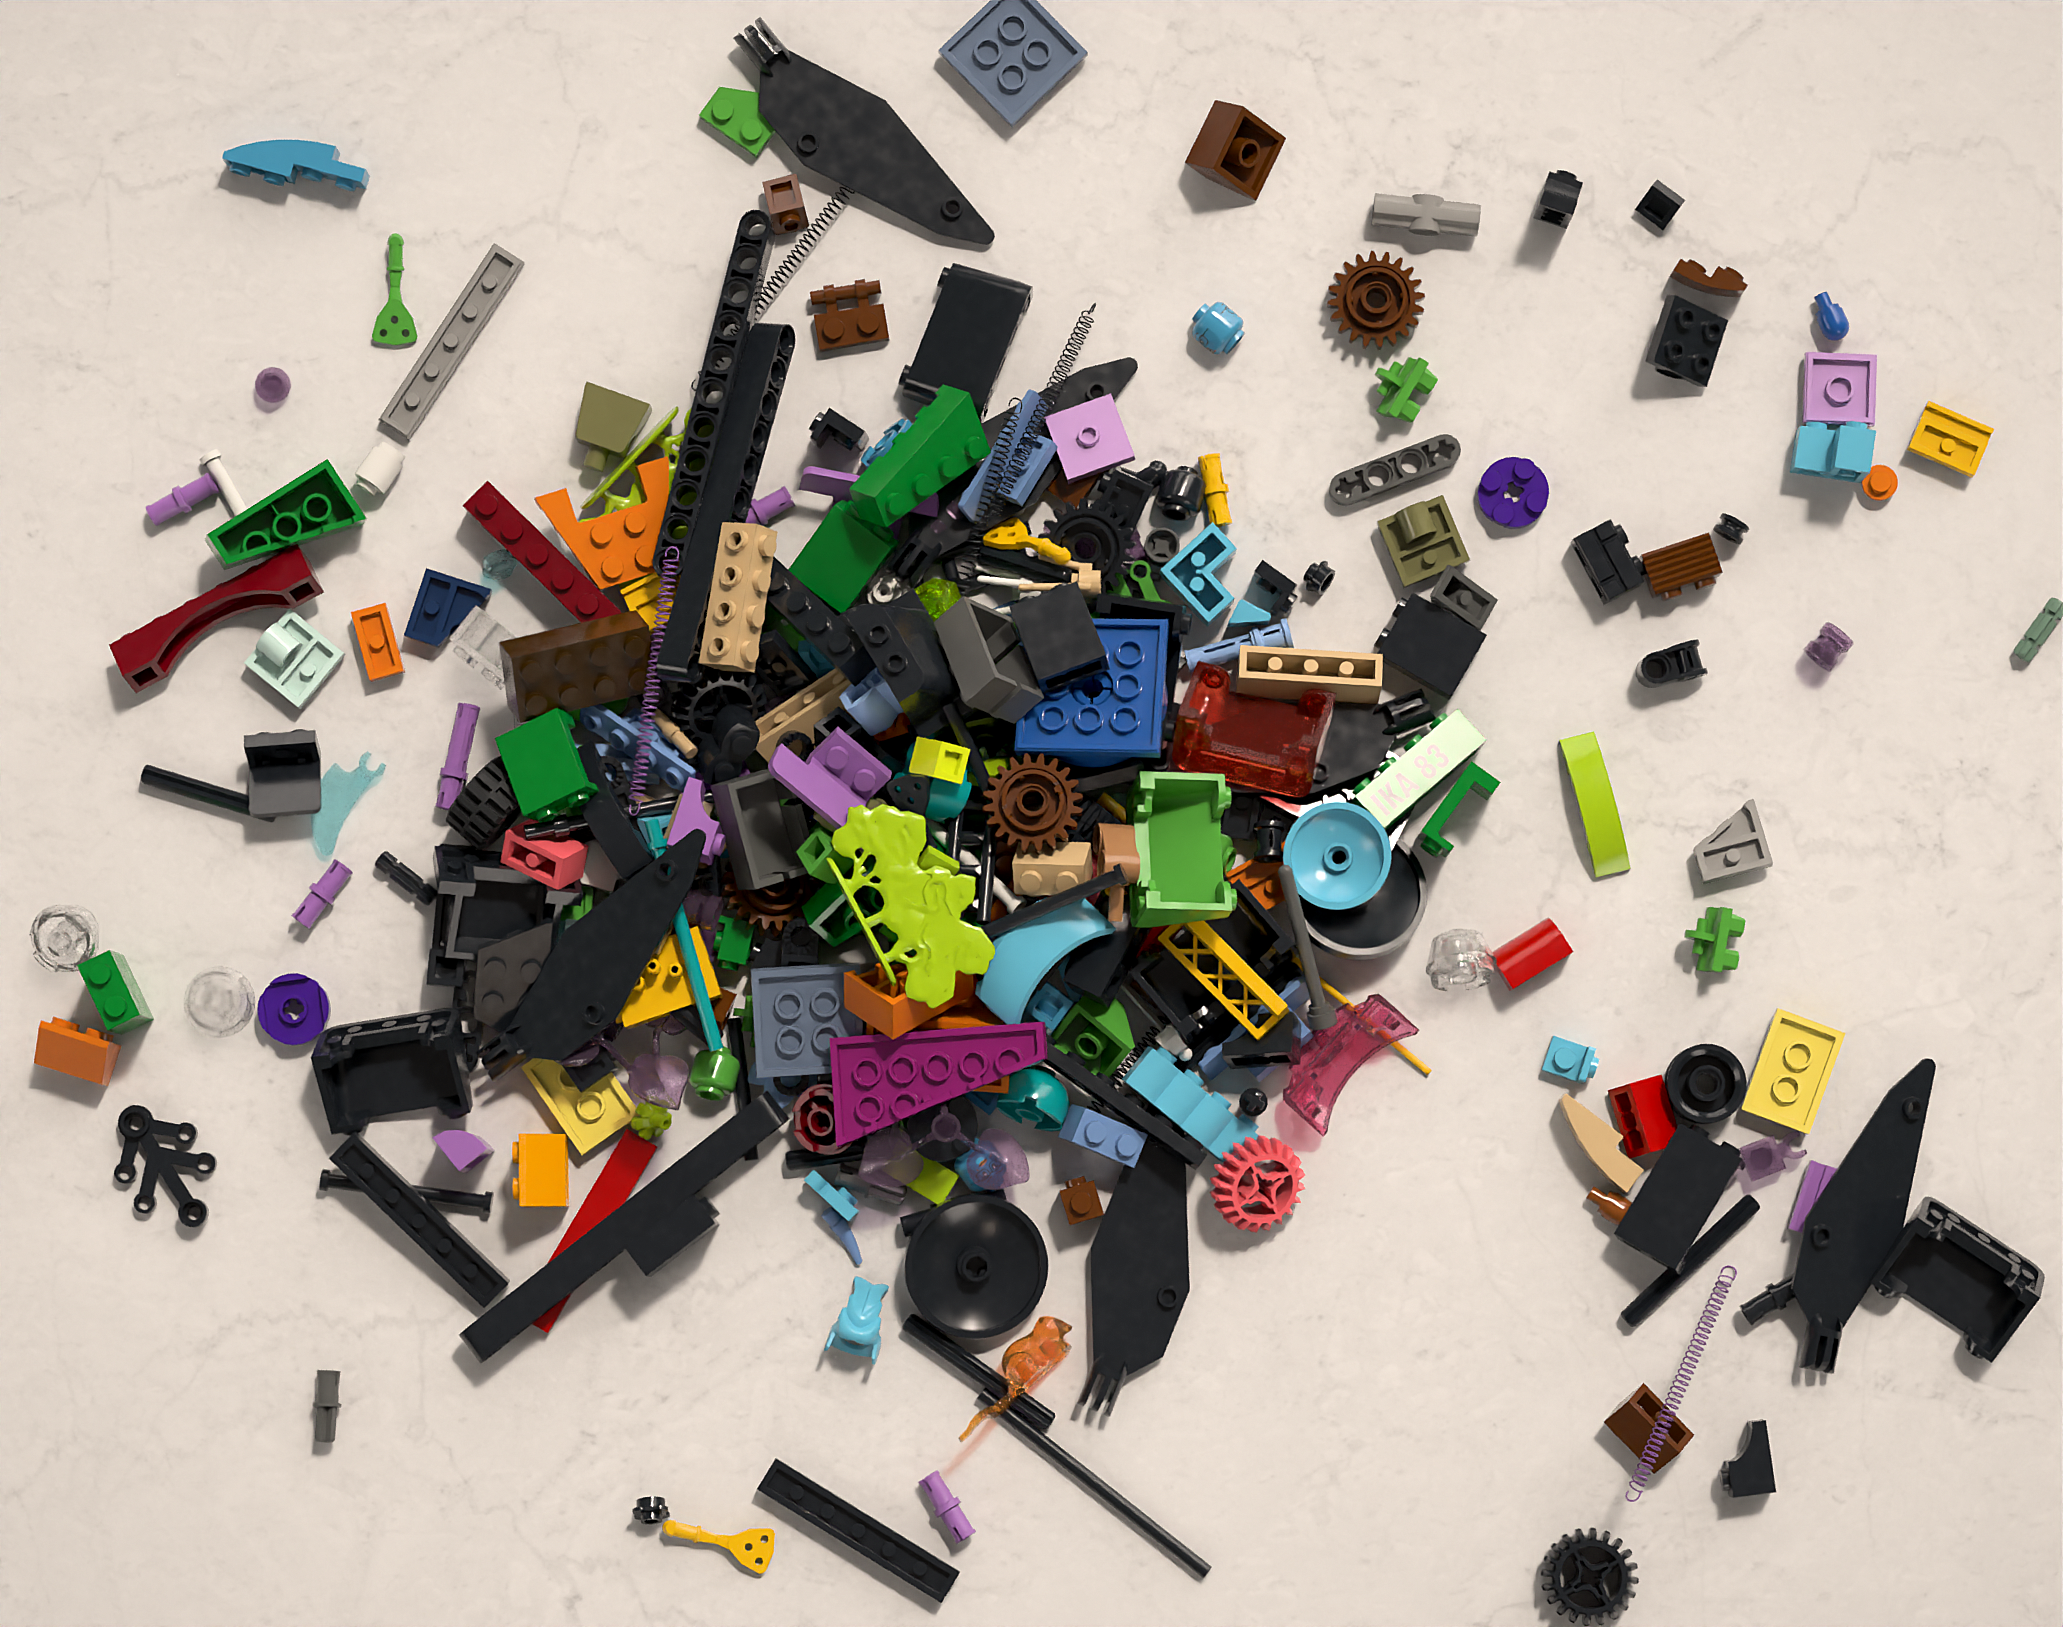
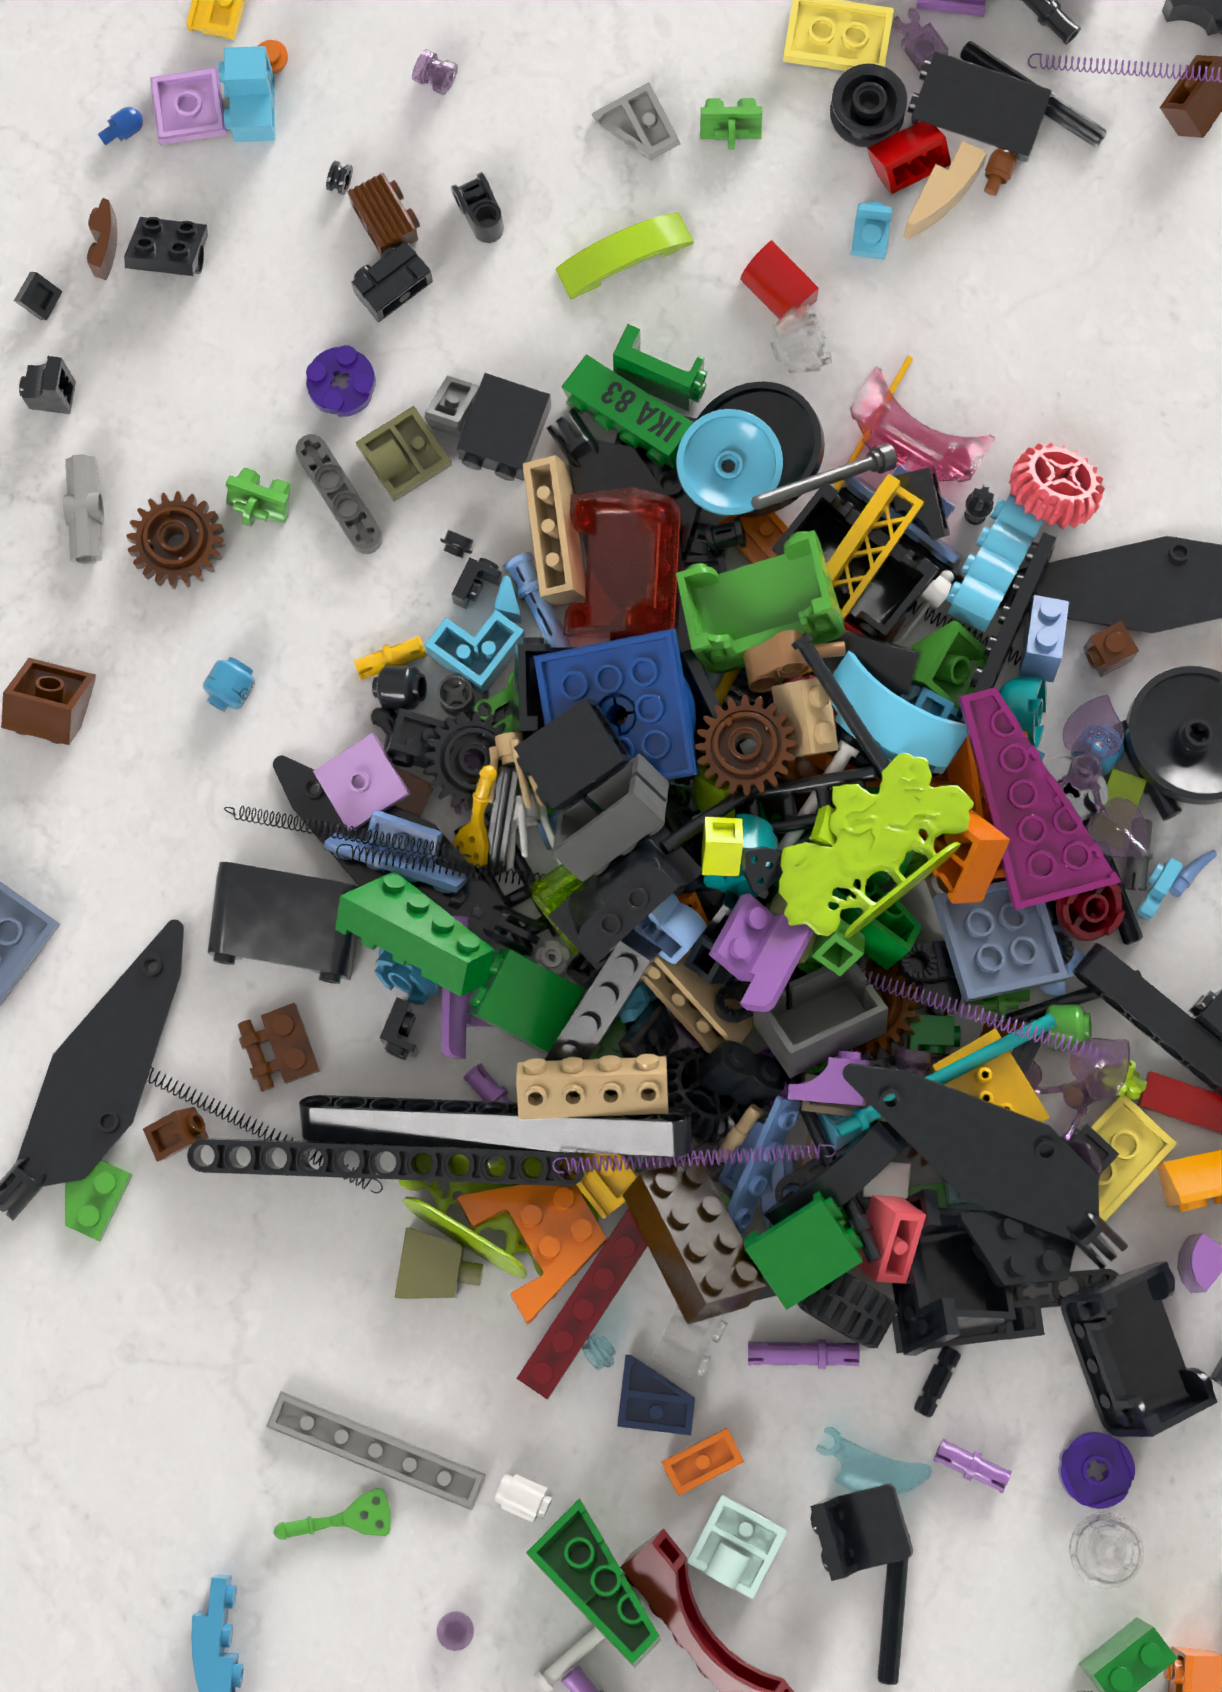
camera: 100 degrees left, 5 degrees down
(751, 960) = (994, 1020): none -> medium lavender piece

